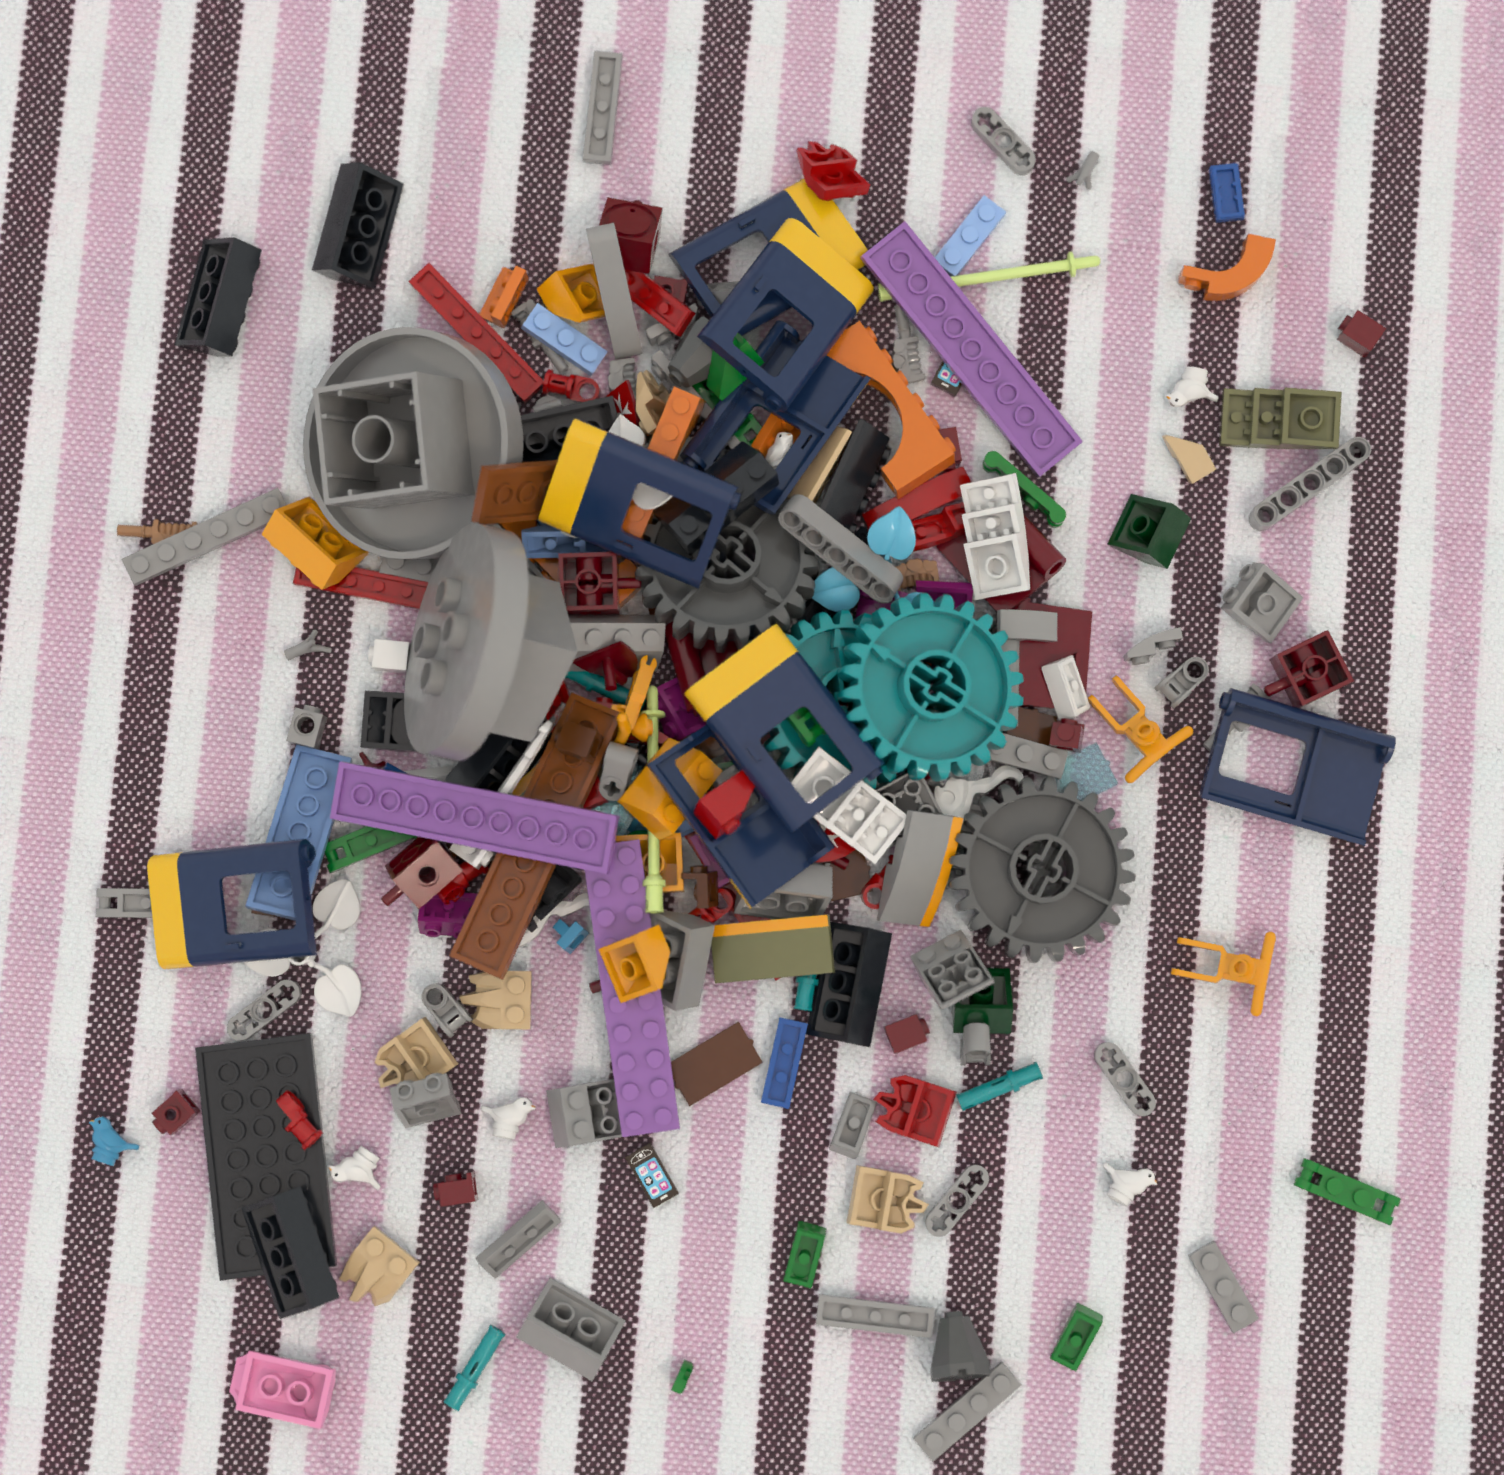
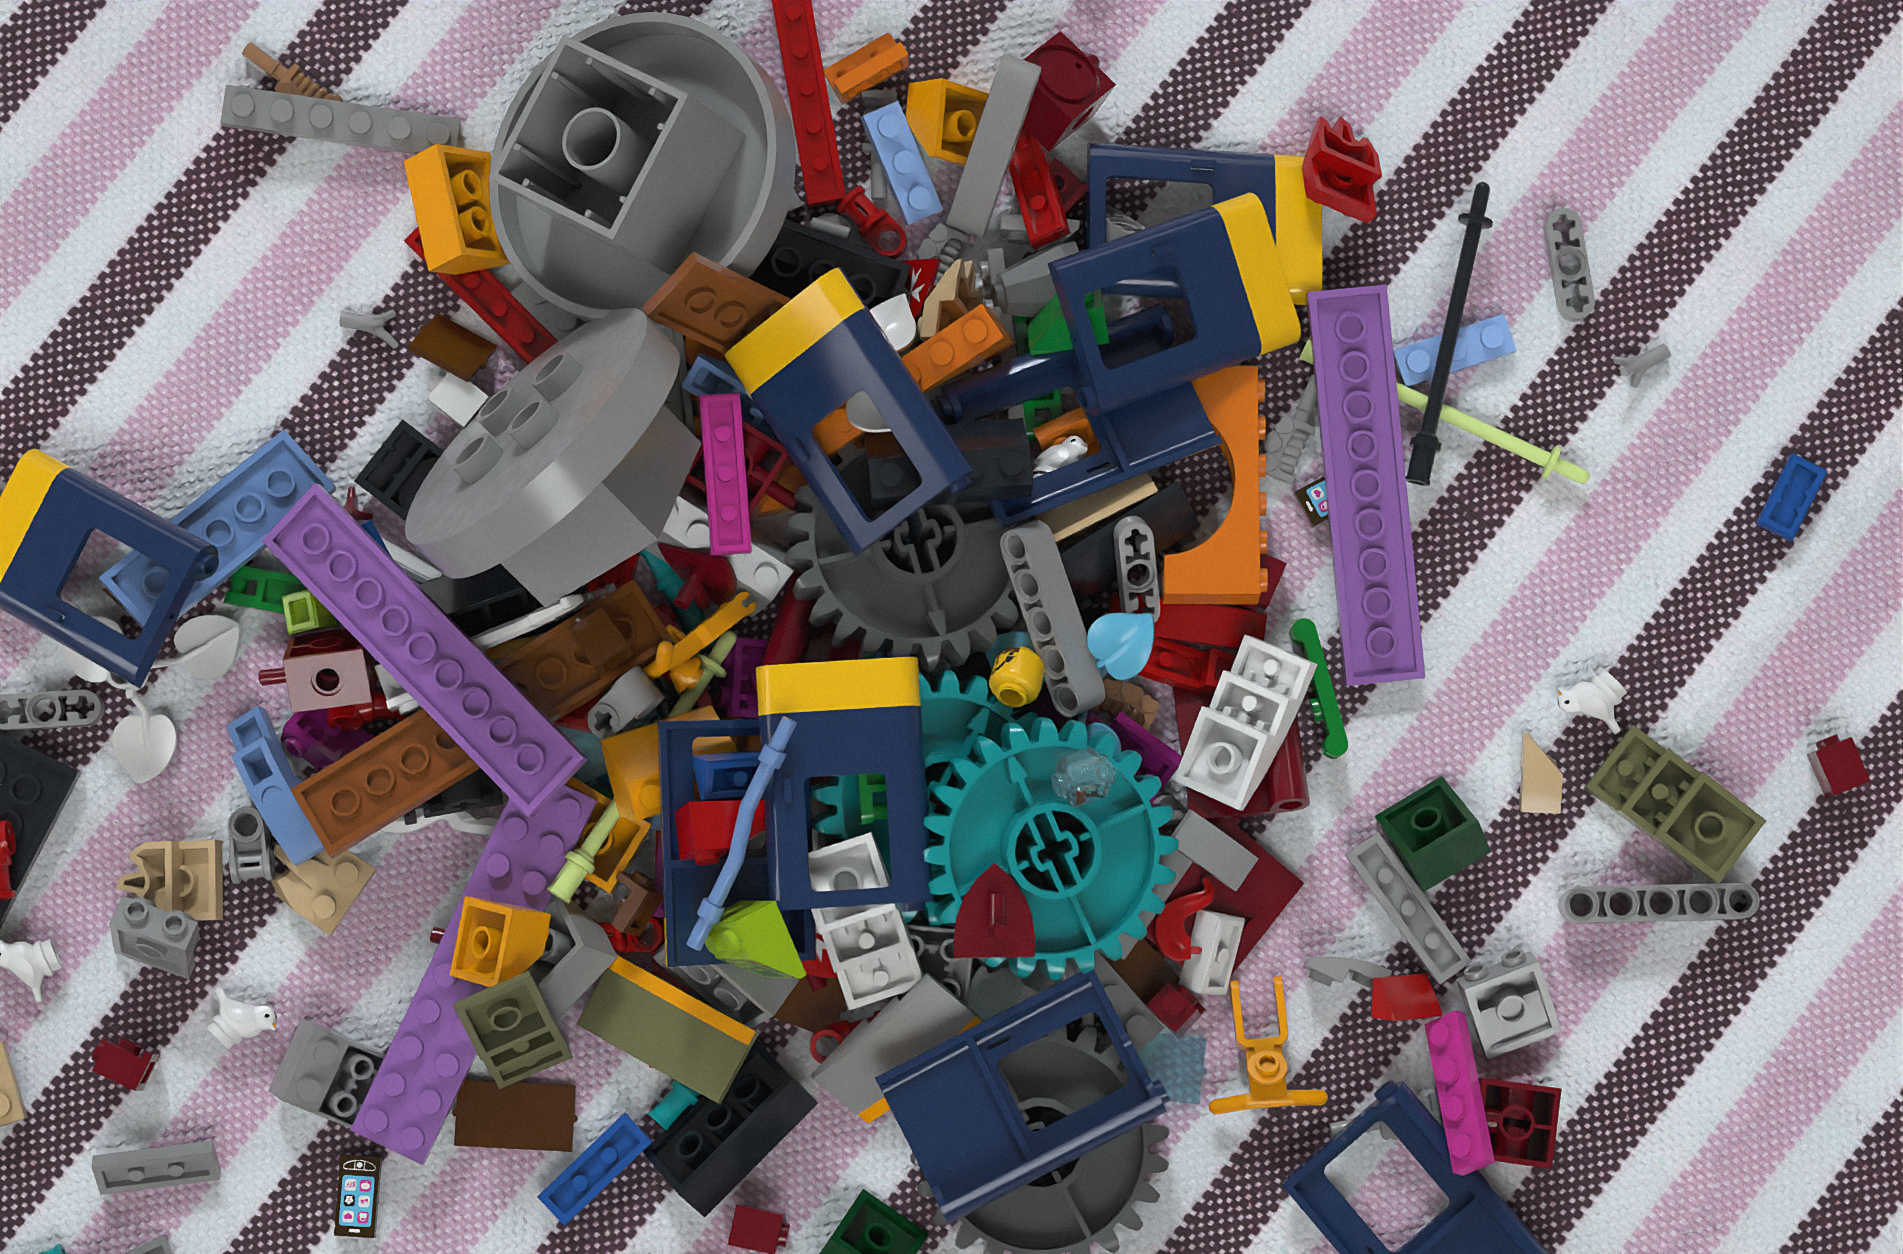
camera: 30 degrees right, 0 degrees up
(310, 739) = (291, 416): light grey brick -> none
(366, 627) = (452, 347): none -> reddish brown piece
(385, 844) = (306, 613): none -> lime slope
(434, 962) = (269, 782): none -> medium blue slope
(571, 936) = (448, 858): dark azure tile -> none
(586, 591) = (725, 474): none -> dark pink tile
(681, 1009) = (513, 1029): none -> olive slope
(711, 769) = (724, 774): none -> blue slope
(755, 854) = (712, 908): none -> medium blue bar
(792, 857) = (756, 940): none -> lime slope
(842, 597) = (1017, 676): none -> yellow head
(860, 484) = (1127, 558): none -> light grey beam
(925, 628) = (1083, 777): none -> clear light blue head
(928, 749) = (994, 919): none -> dark red shield
(951, 970) = (855, 1191): light grey slope -> none
(990, 301) = (1426, 443): none -> black bar
(994, 884) = (967, 1122): none -> dark blue piece
(1031, 688) = (1169, 925): none -> red piece
(1164, 585) = (1408, 908): none -> light grey plate
(1181, 682) = (1350, 1036): light grey piece -> none
(1198, 638) = (1404, 998): none -> red slope
(1235, 281) = (1735, 608): orange arch -> none
(1269, 672) = (1459, 1093): none -> dark pink plate

